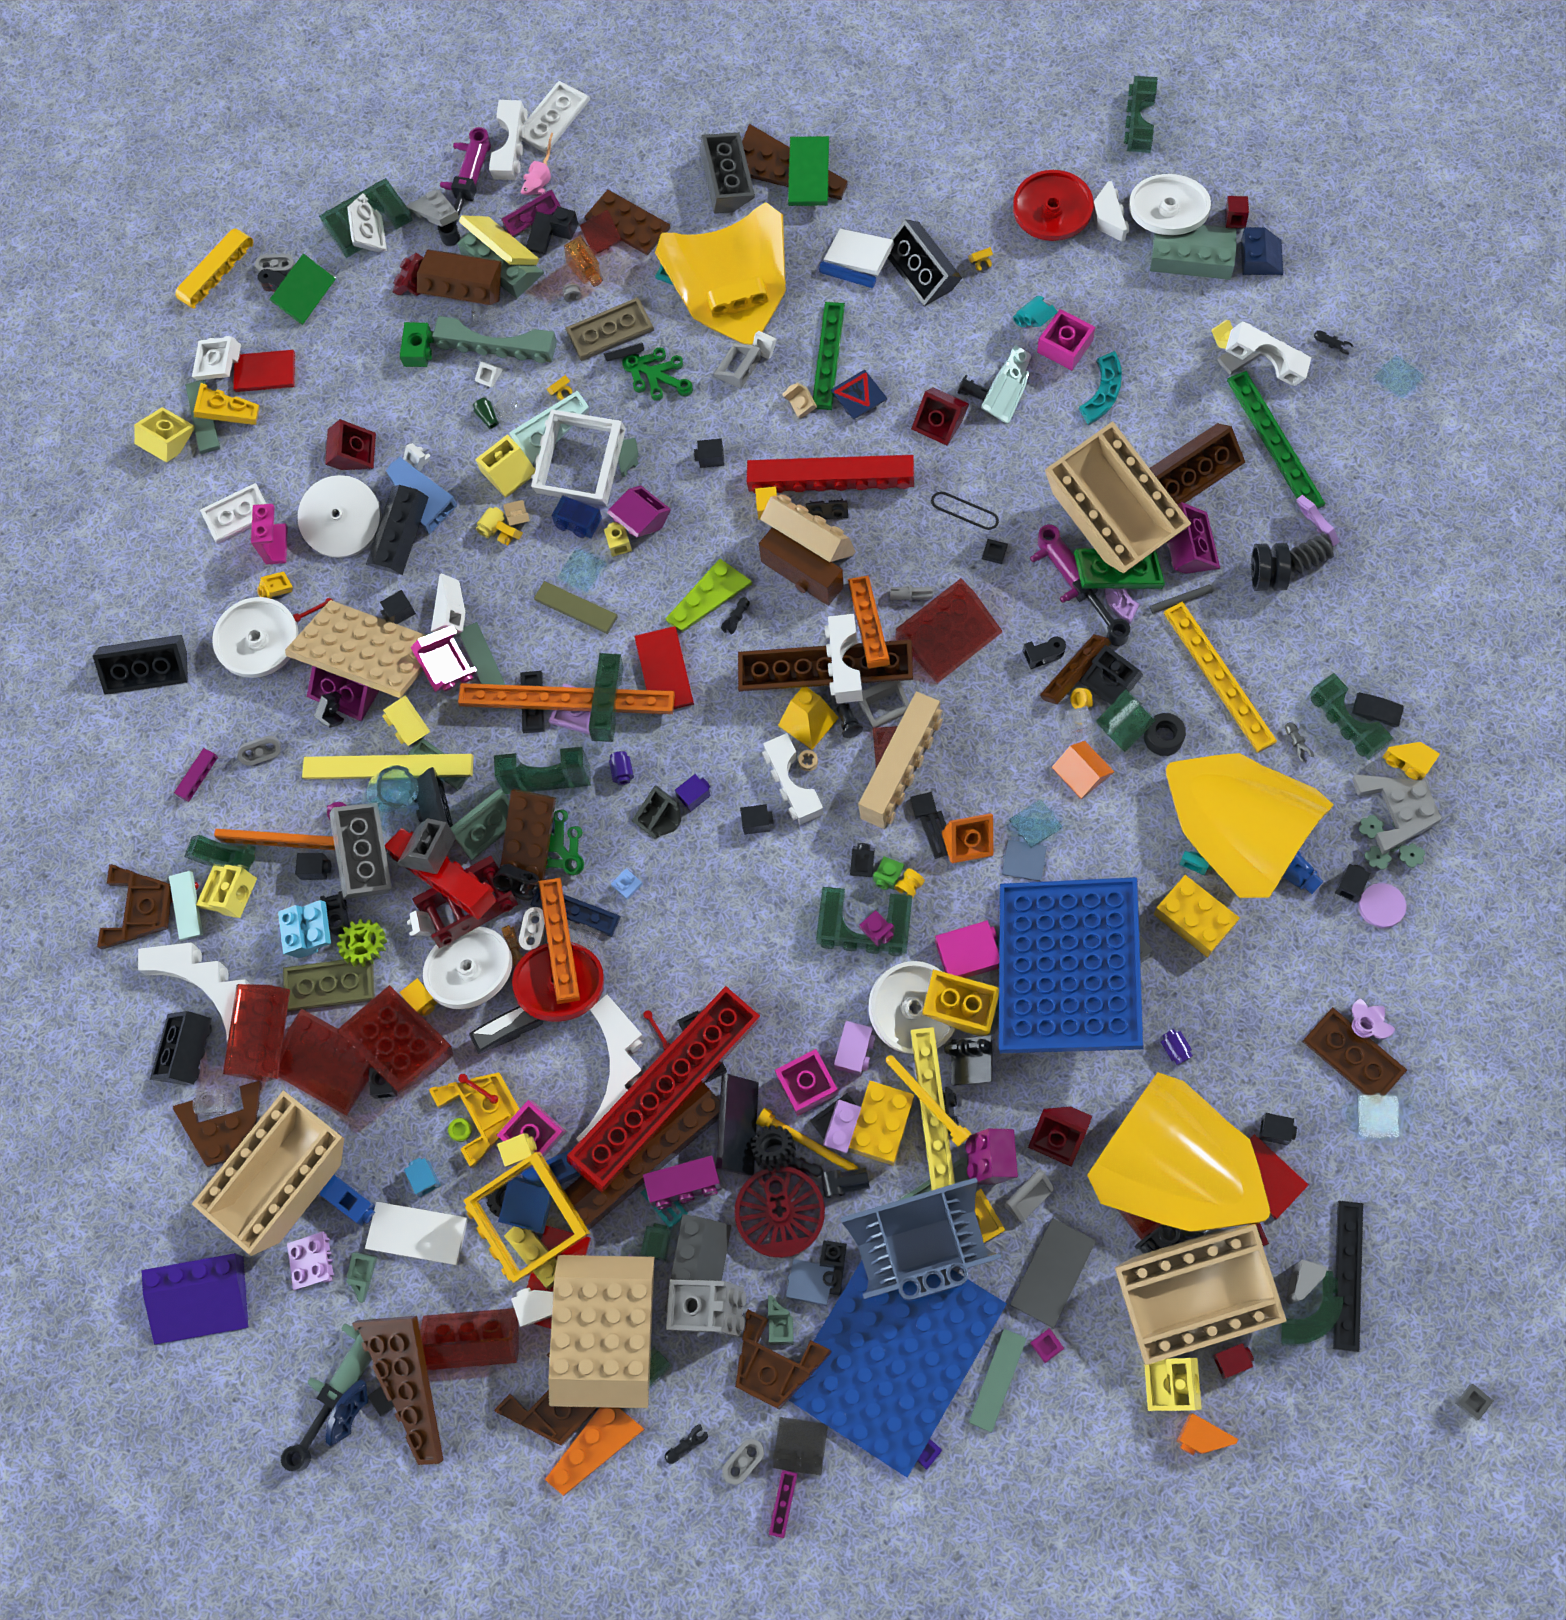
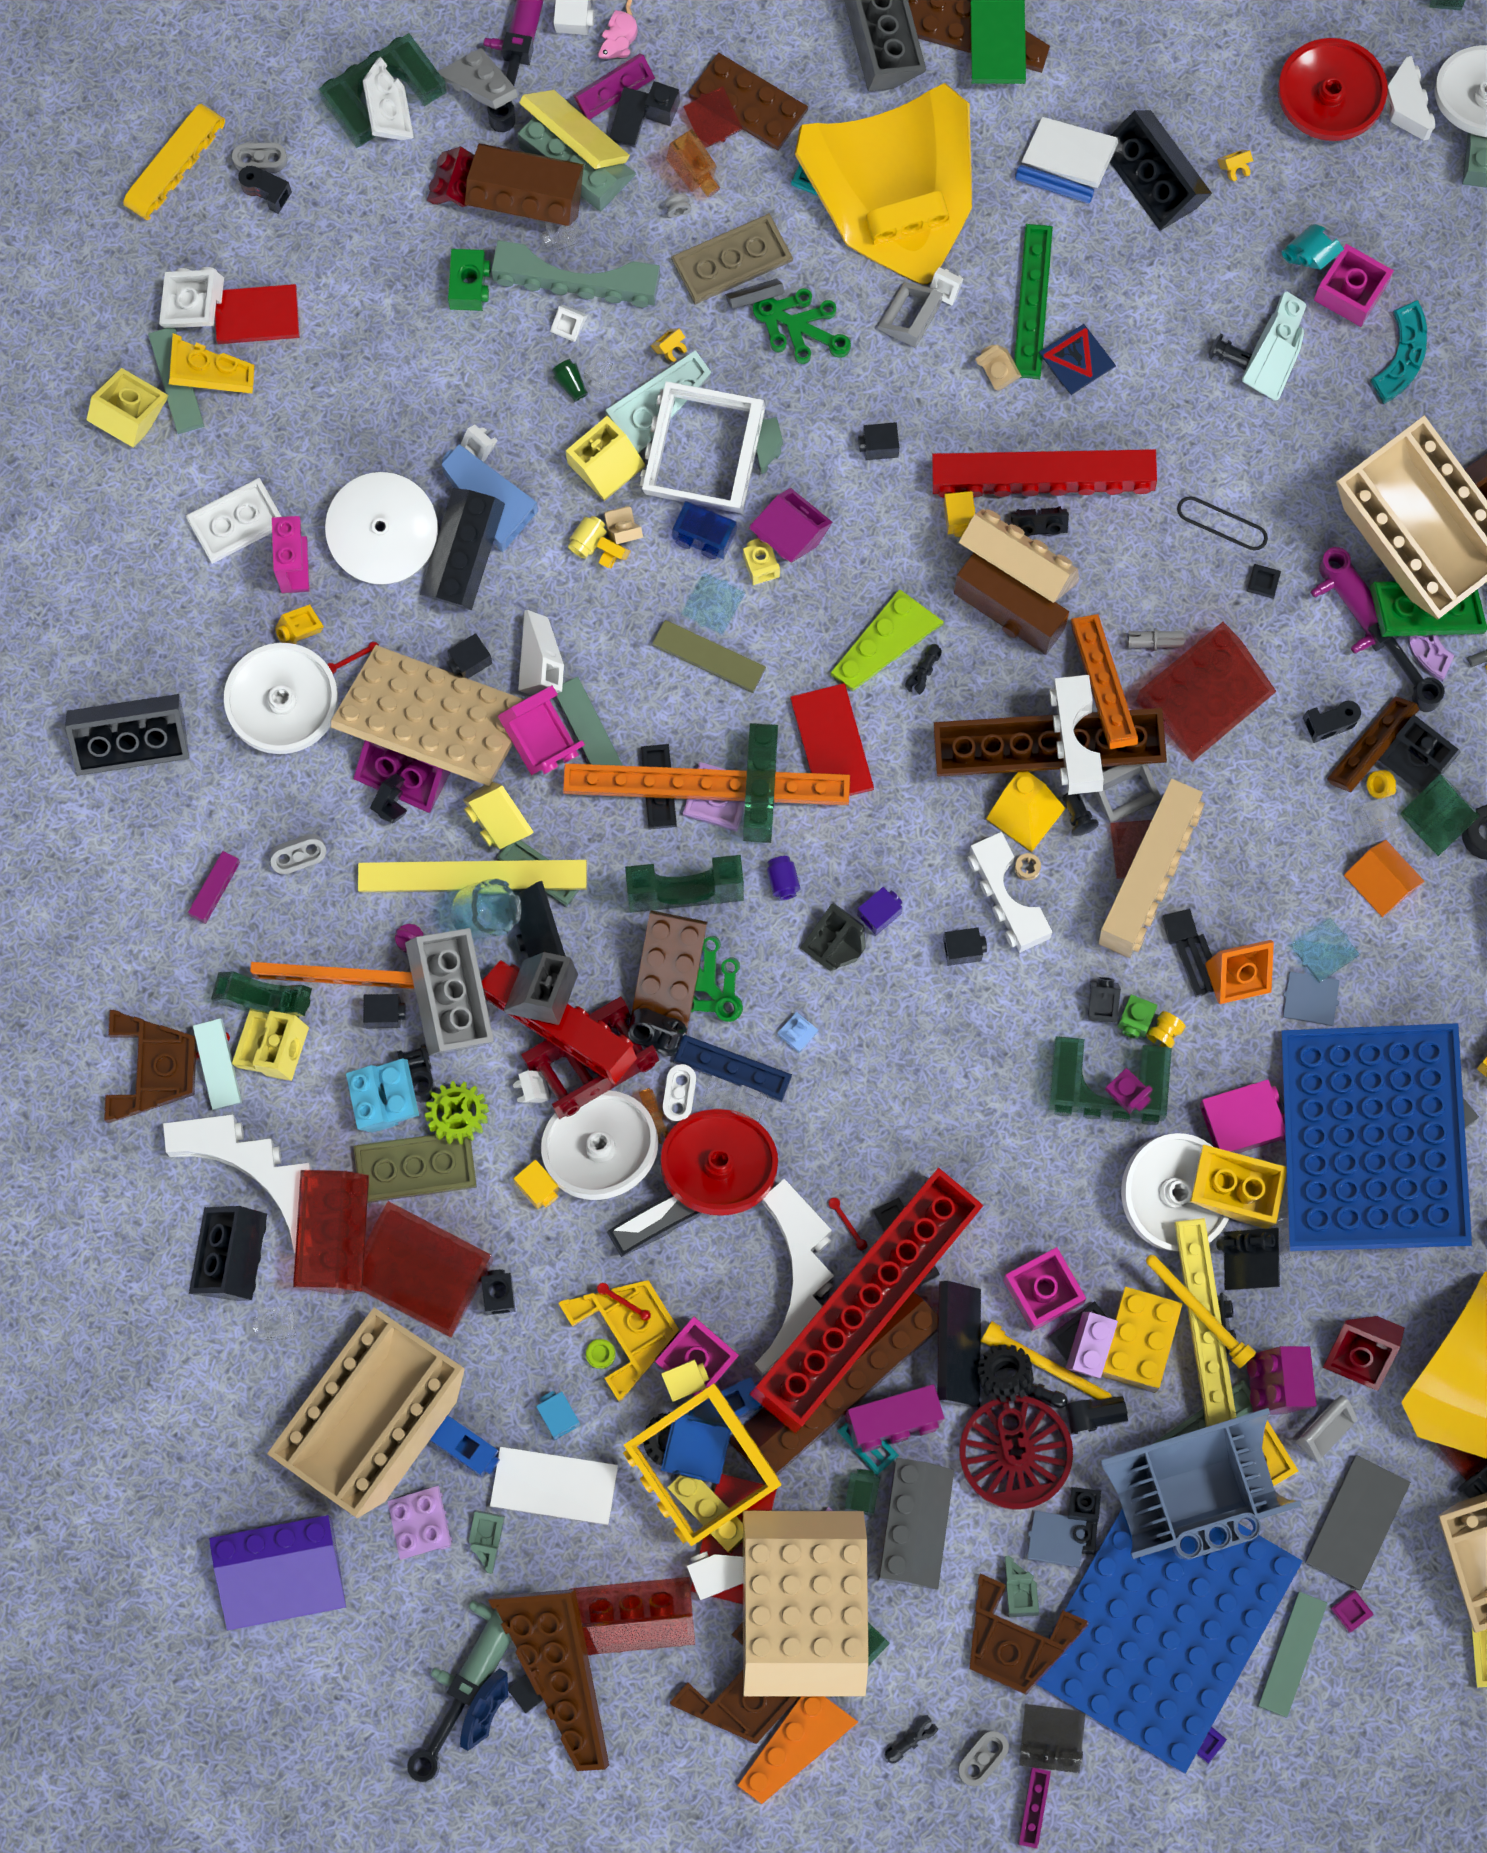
camera: 10 degrees left, 5 degrees up
(221, 1135) = (293, 1366): reddish brown wing -> none
(302, 289) = (303, 196): green tile -> none
(350, 447) = (386, 427): dark red slope -> none
(396, 1040) = (515, 1240): clear red slope -> none
(482, 825) = (610, 955): sand green tile -> none
(559, 941) = (717, 1109): orange tile -> none
(717, 1309) = (946, 1576): light grey bracket -> none
(854, 1048) = (1102, 1245): lavender brick -> none
(939, 415) = (1186, 391): dark red slope -> none

